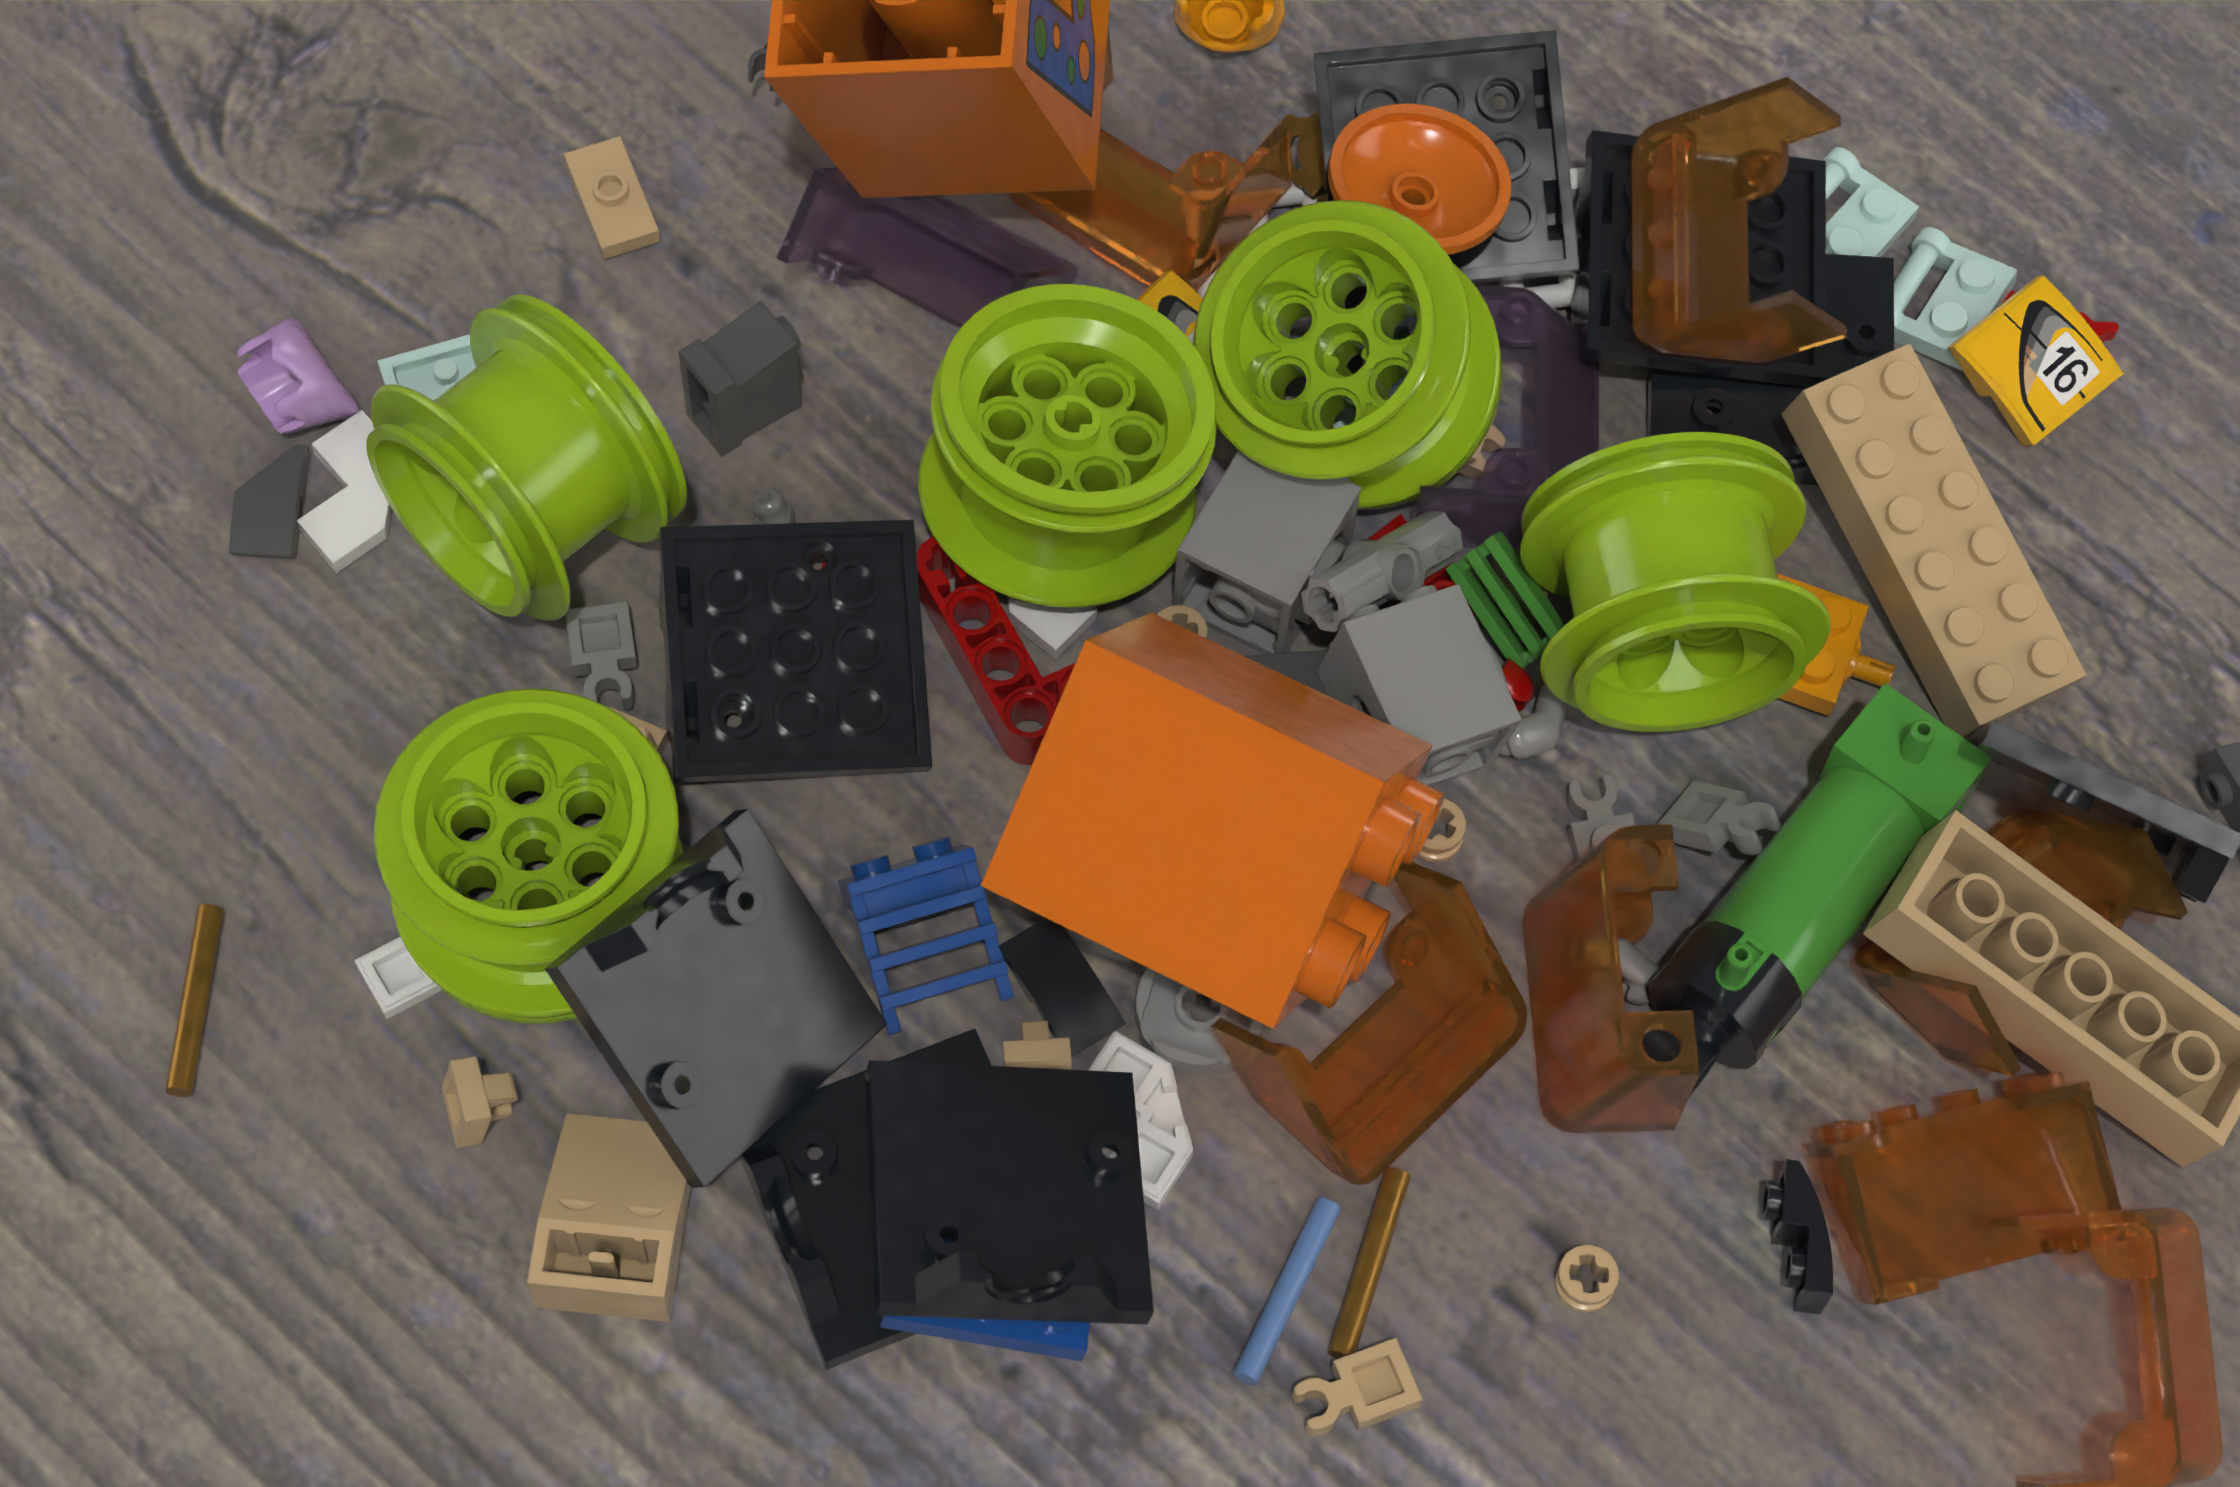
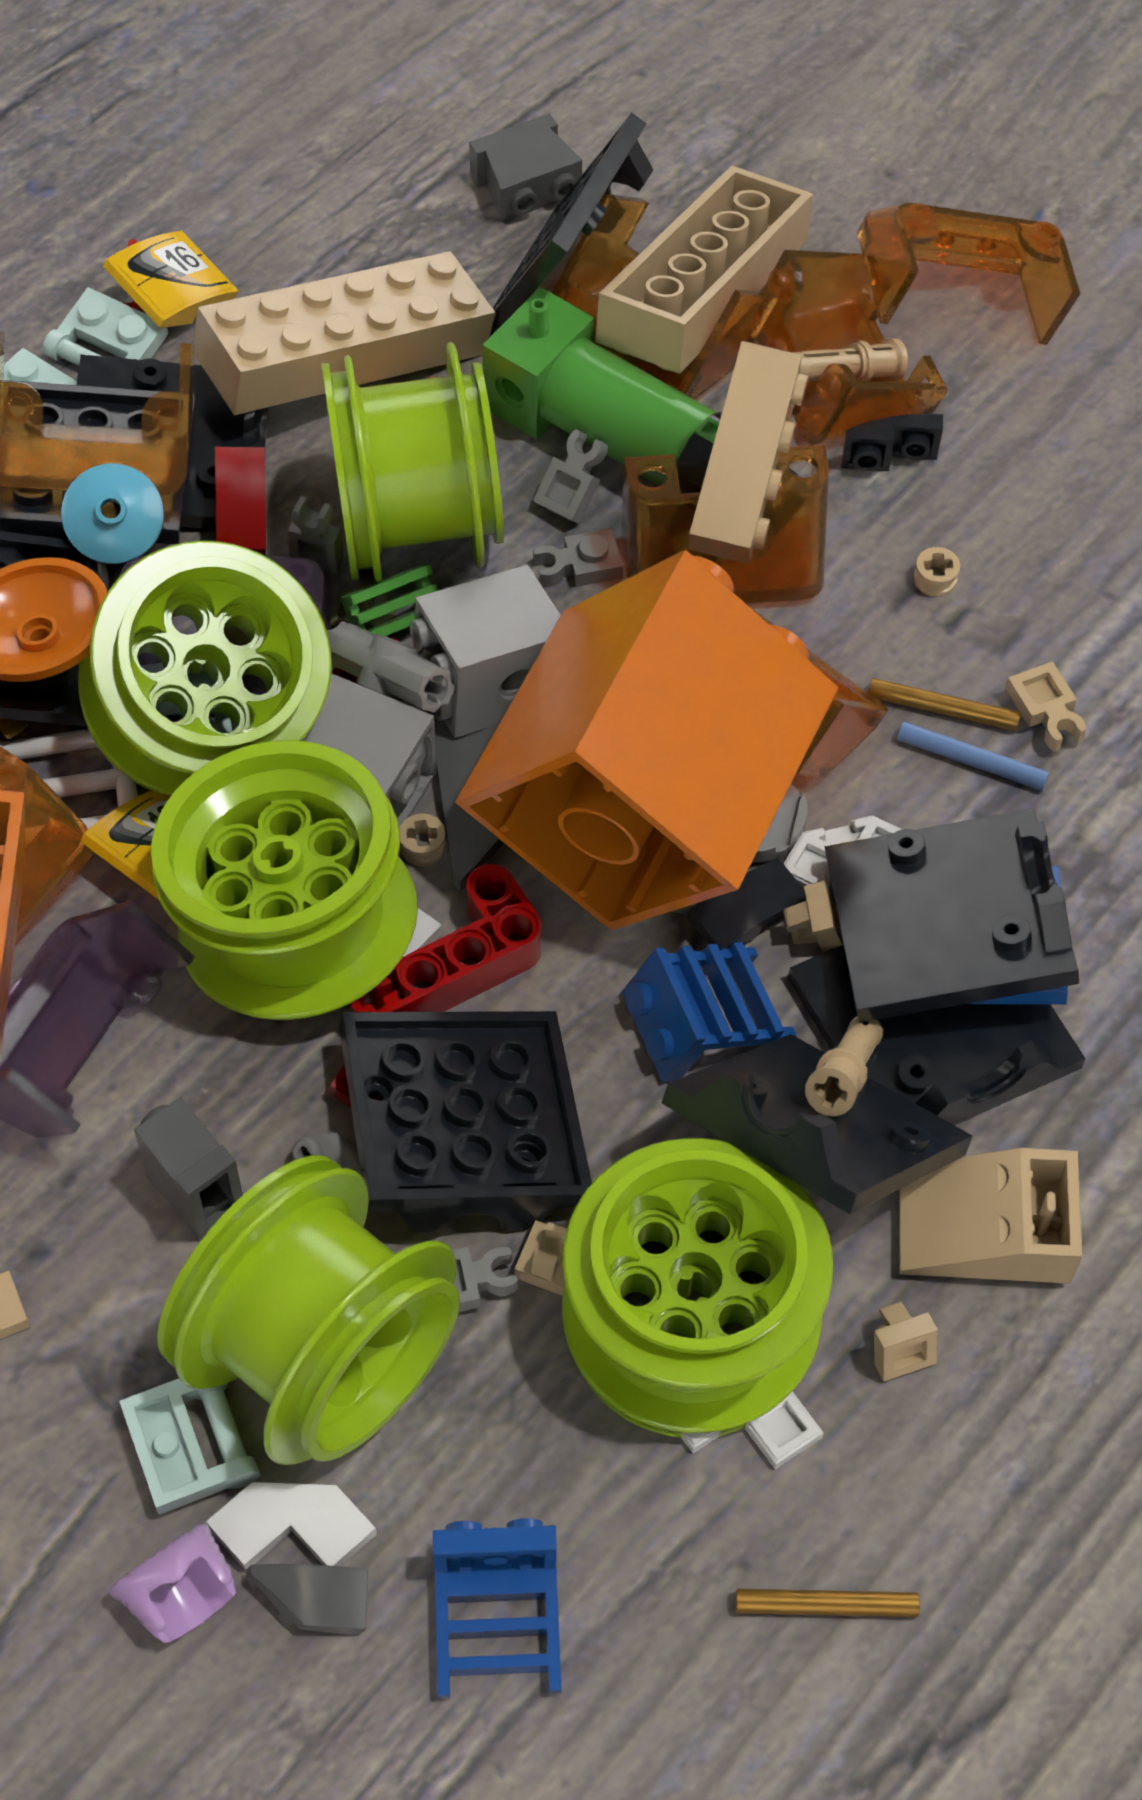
camera: 90 degrees left, 5 degrees down
(273, 677) = (496, 1566): none -> blue plate
(773, 1022) = (843, 1069): none -> tan pin
(1612, 288) = (116, 538): none -> medium azure dish
(1649, 946) = (746, 453): none -> tan wedge
(1659, 414) = (240, 497): none -> red slope
(1926, 1192) = (864, 360): none -> tan pin

